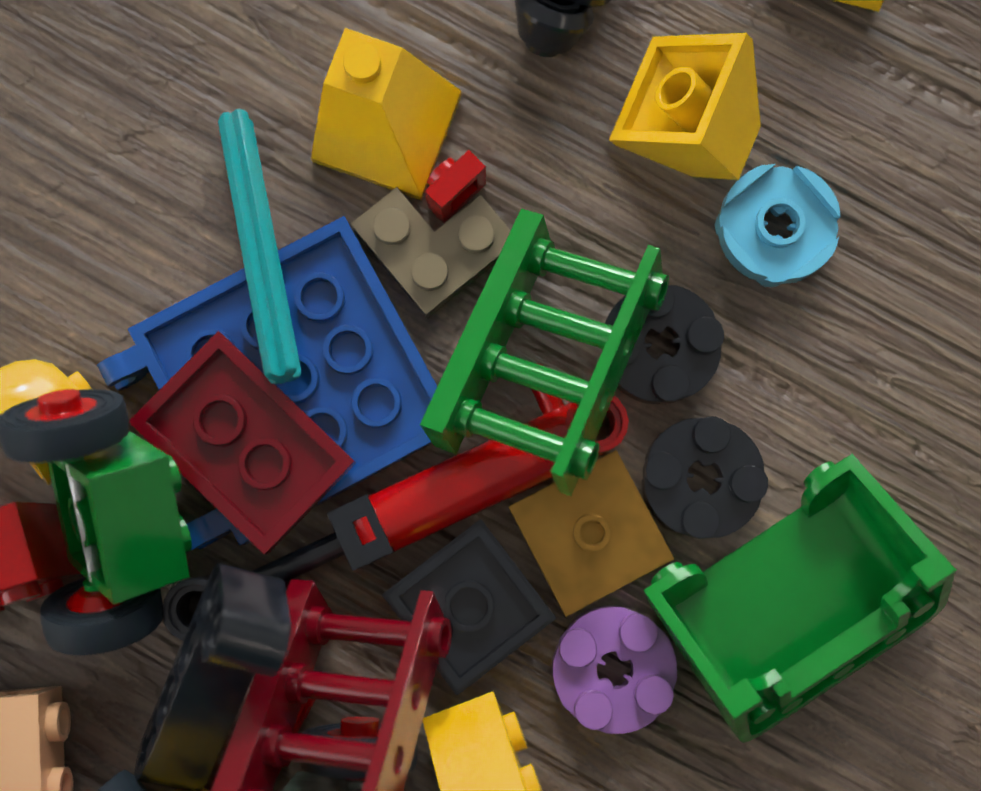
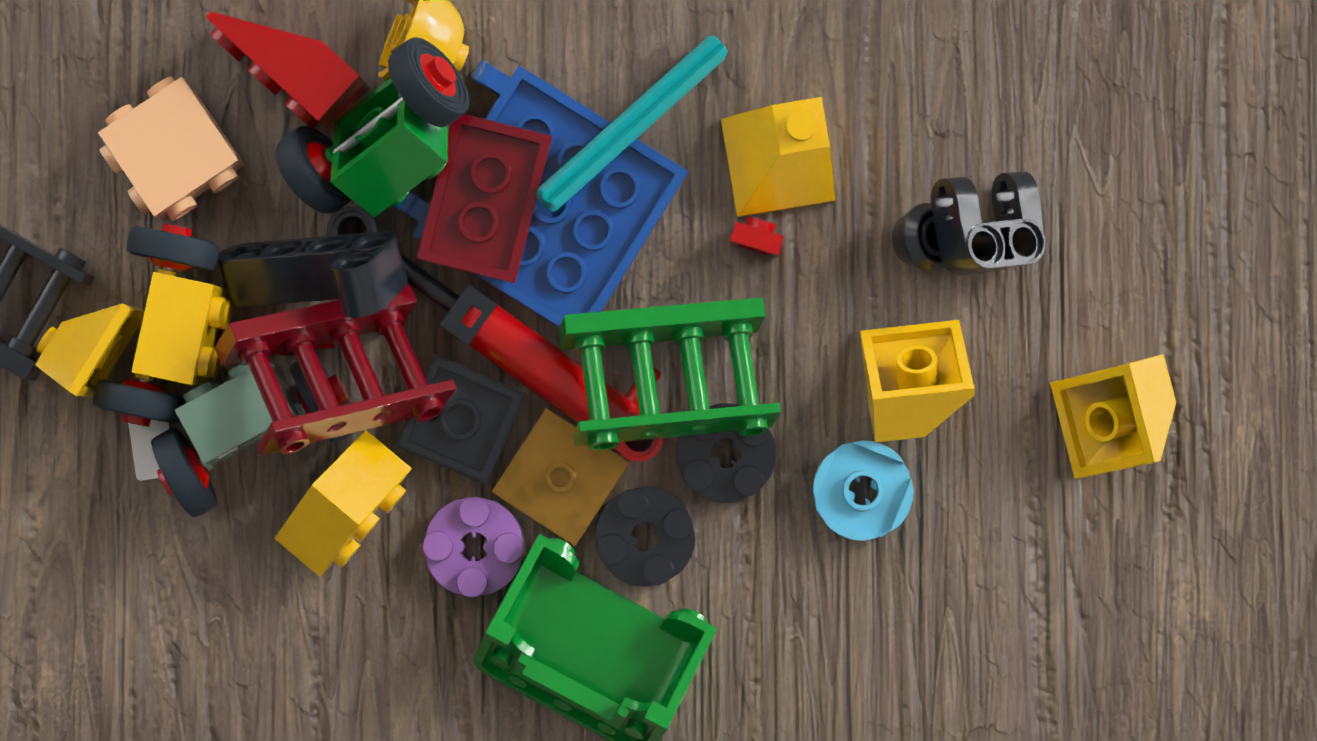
camera: 60 degrees right, 5 degrees up
(430, 263) = (691, 250): dark tan plate -> none

